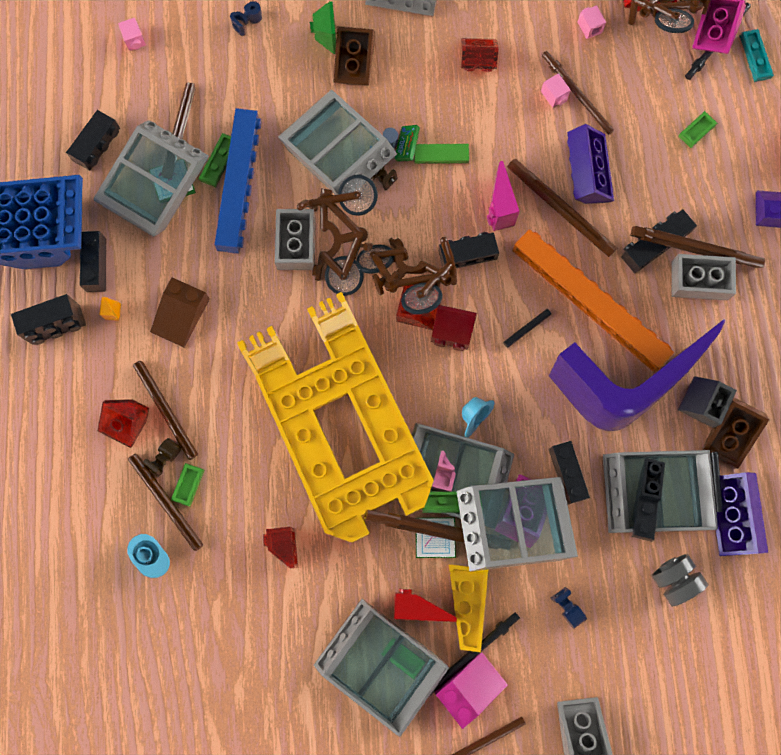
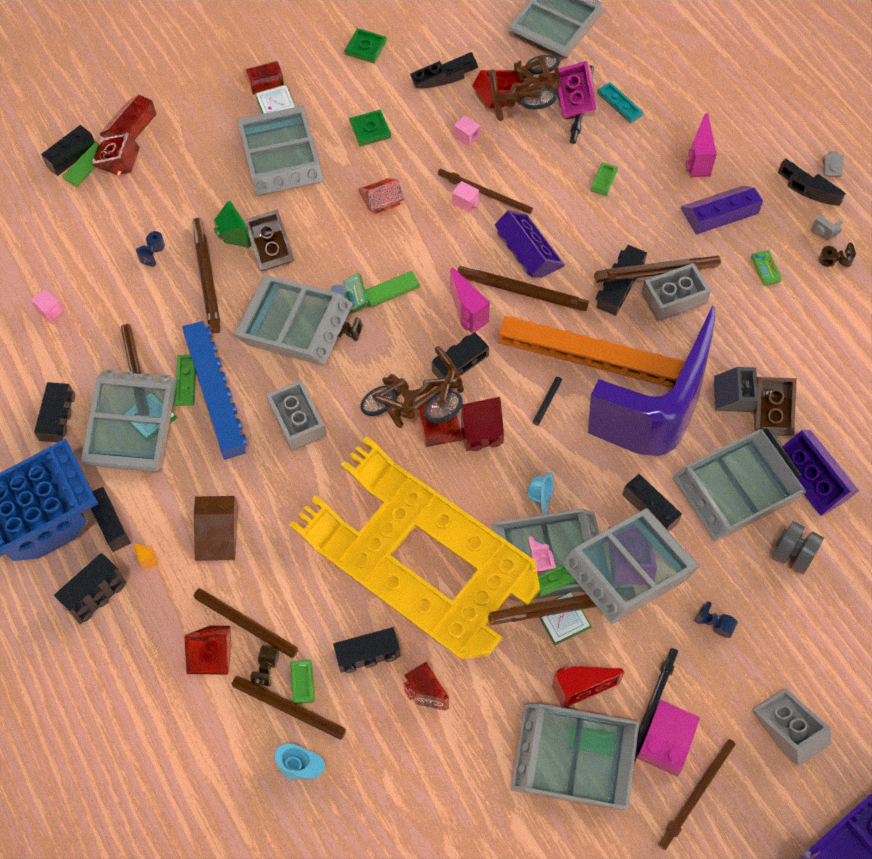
camera: 25 degrees left, 15 degrees down
(252, 485) = (367, 650): none -> black brick
(282, 66) = (206, 276): none -> reddish brown piece
(357, 197) = (338, 350): piece -> none
(469, 598) = (621, 651): yellow wing -> none
(647, 499) = (732, 494): black slope -> none

